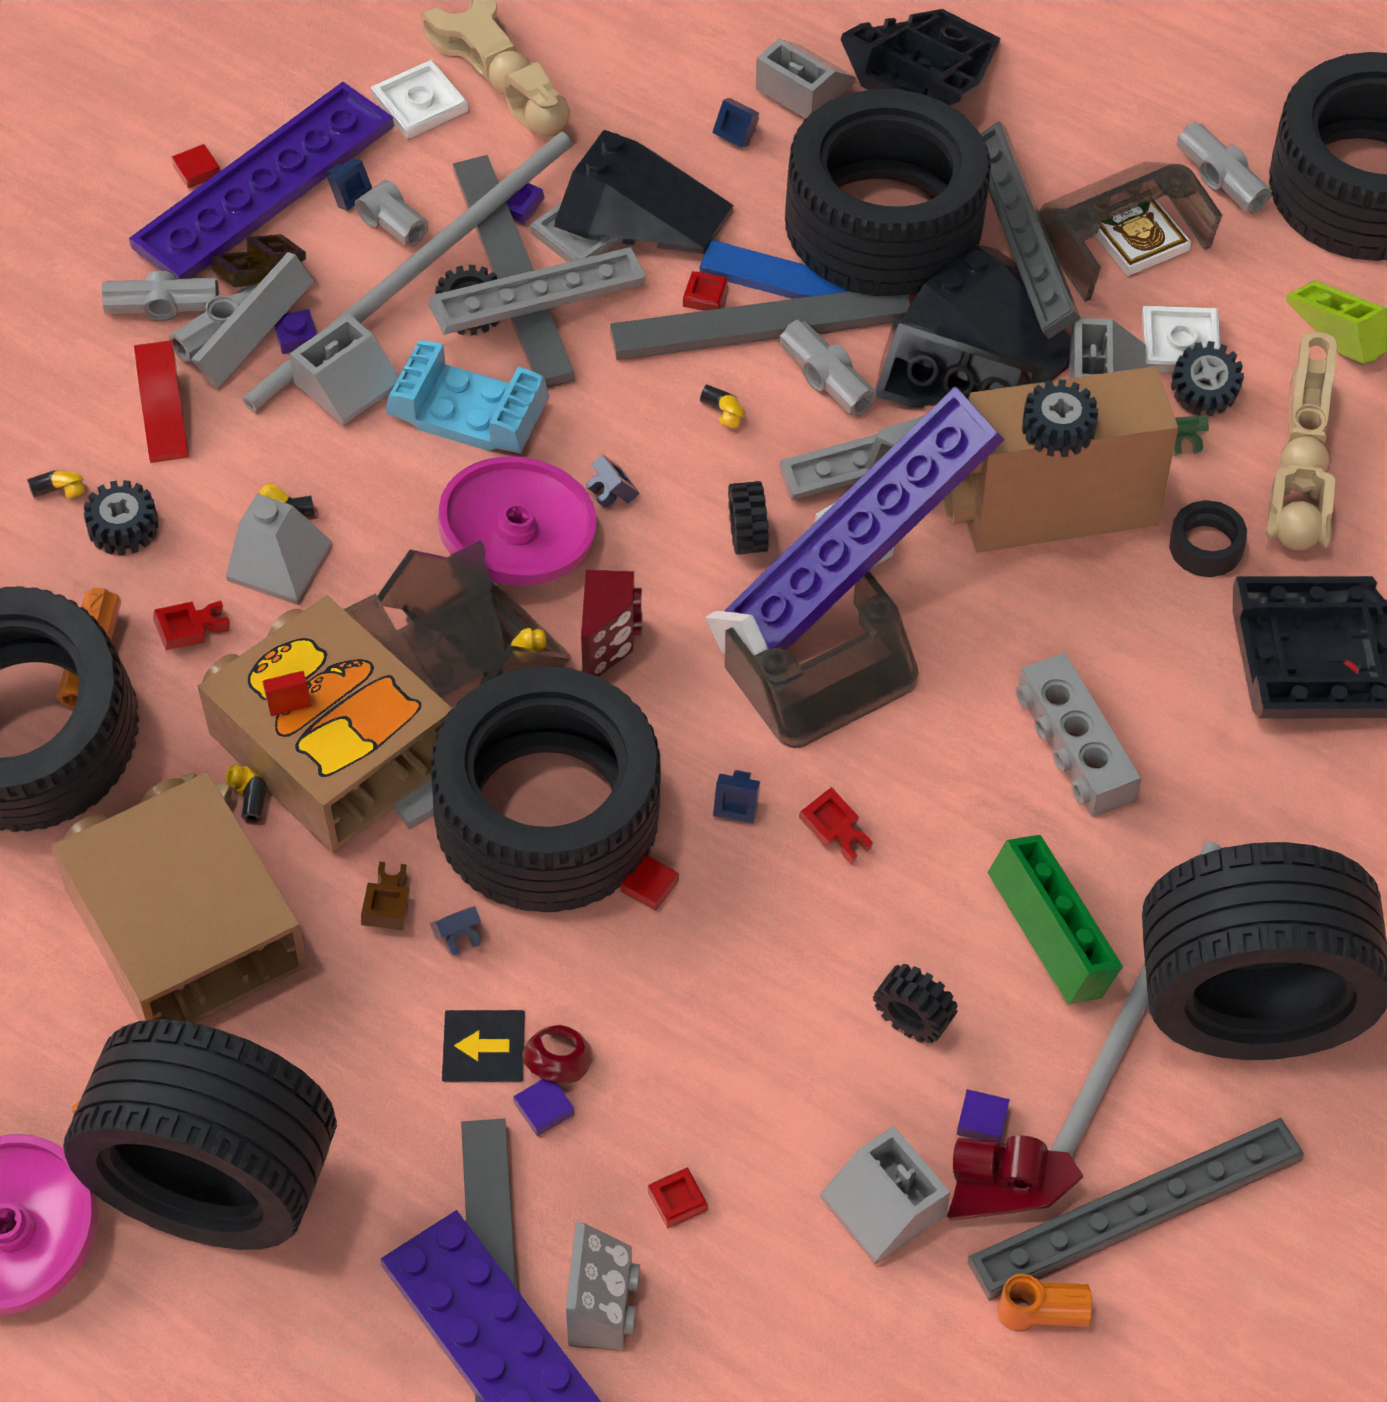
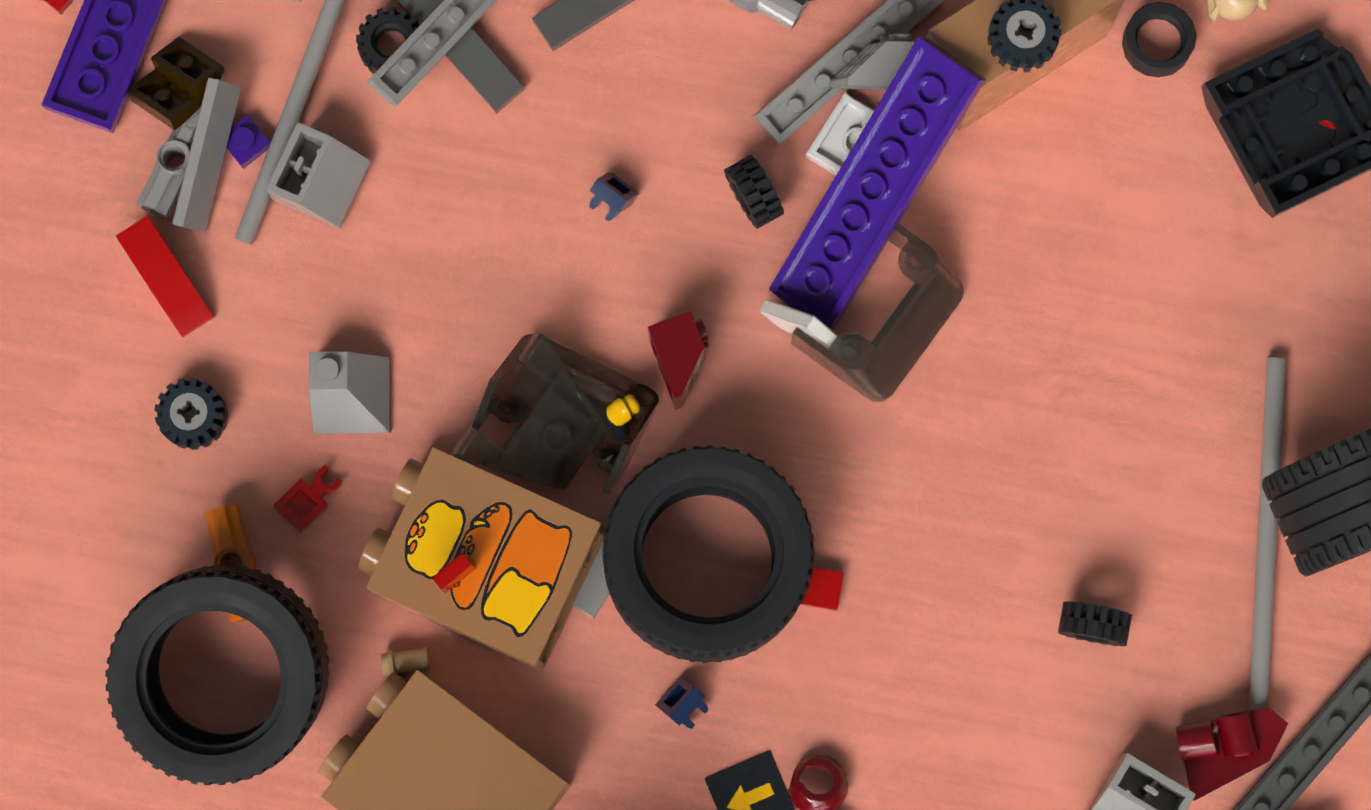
camera: 20 degrees left, 25 degrees up
(55, 480) = (114, 395): arm -> none
(158, 295) = (102, 156): light grey piece -> none
(251, 787) = (443, 639): black arm -> none
(302, 504) = (325, 338): arm -> none
(387, 901) = (612, 703): reddish brown plate -> none
(467, 404) = (442, 160): medium azure plate -> none
(527, 515) = (558, 247): dark pink dish -> none
(726, 402) = (678, 64): yellow arm -> none
(736, 797) = (861, 478): dark blue tile -> none
(834, 820) = (950, 468): red plate -> none
(983, 1116) = (1183, 694): dark purple tile -> none
(1054, 919) = (1176, 493): green brick -> none
(1058, 682) = (1118, 273): light grey brick -> none

